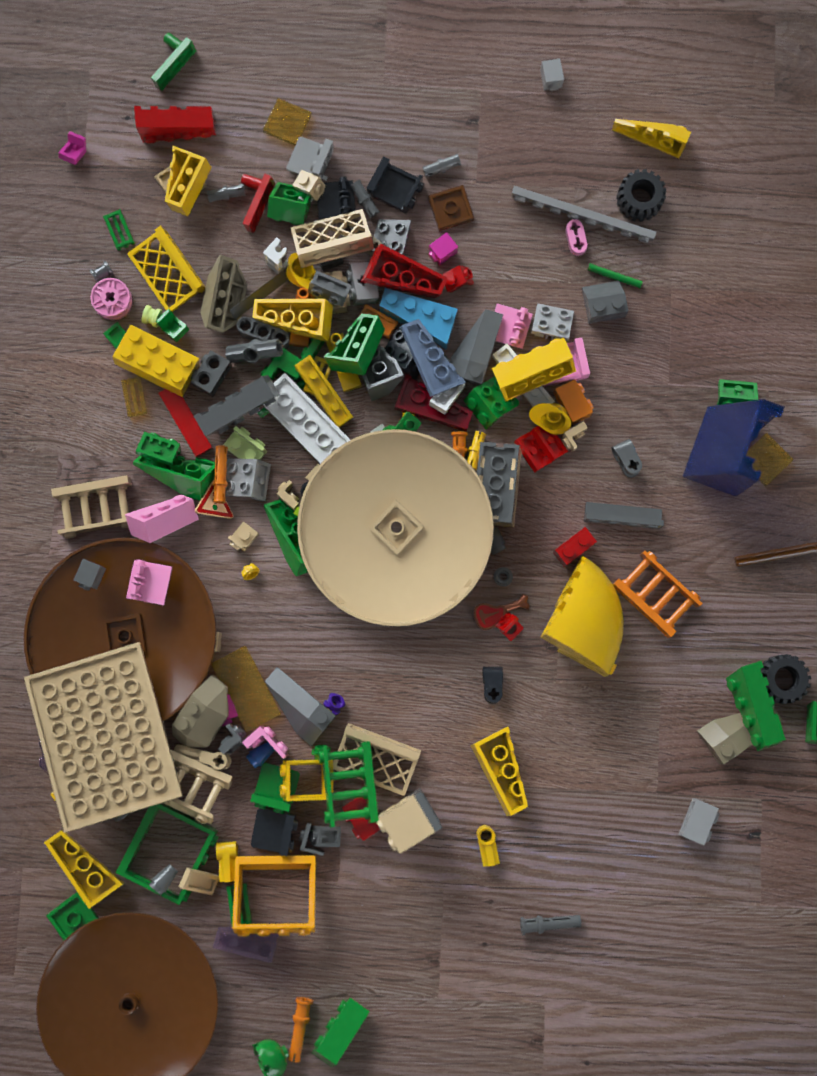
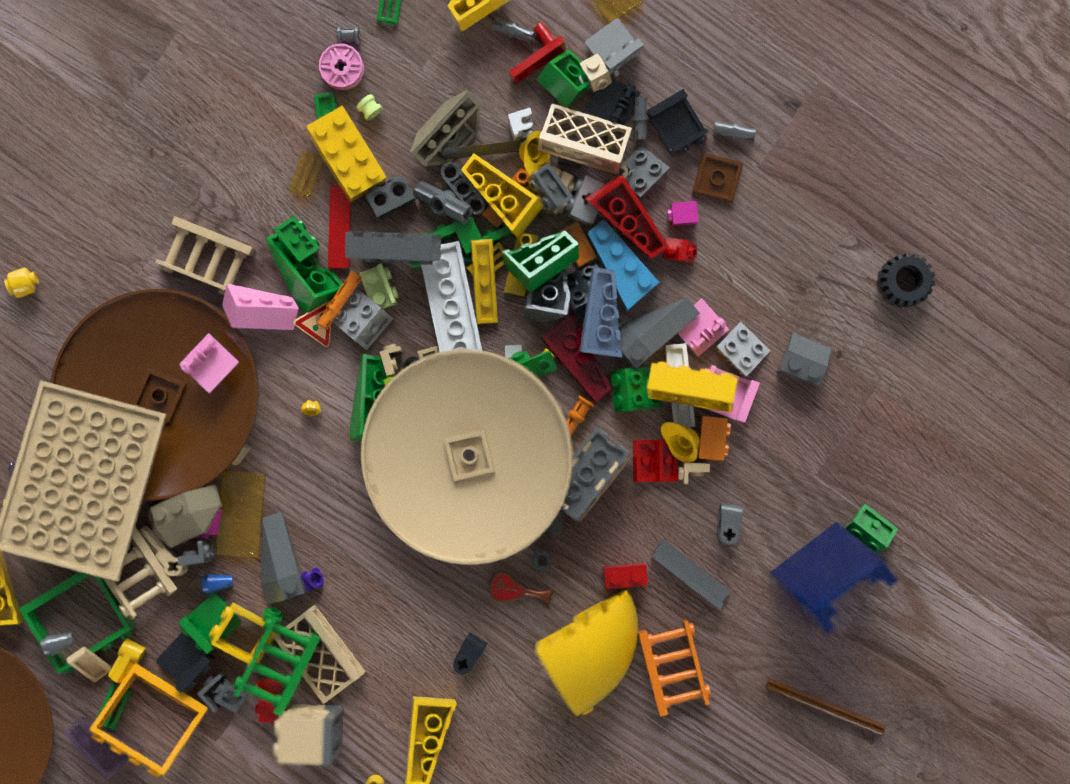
camera: 30 degrees right, 5 degrees up
(89, 575) = (158, 321): dark grey brick -> none
(172, 325) = (382, 128): green bracket -> none
(179, 260) = (427, 66): yellow fence -> none
(243, 537) = (324, 371): tan bracket -> none
(256, 739) = (233, 570): bright pink bracket -> none
(444, 400) = (590, 362): white plate -> none
(474, 449) = (590, 425): yellow pin -> none
(506, 623) = (517, 607): red bracket -> none
(552, 74) = (897, 108): light grey brick -> none
(571, 237) = (813, 279): bright pink beam -> none
(590, 217) = (844, 271): light grey plate -> none
(614, 275) = (831, 341): green bar -> none
(663, 137) = (965, 236): yellow wedge -> none
(769, 458) = (860, 607): clear yellow tile -> none

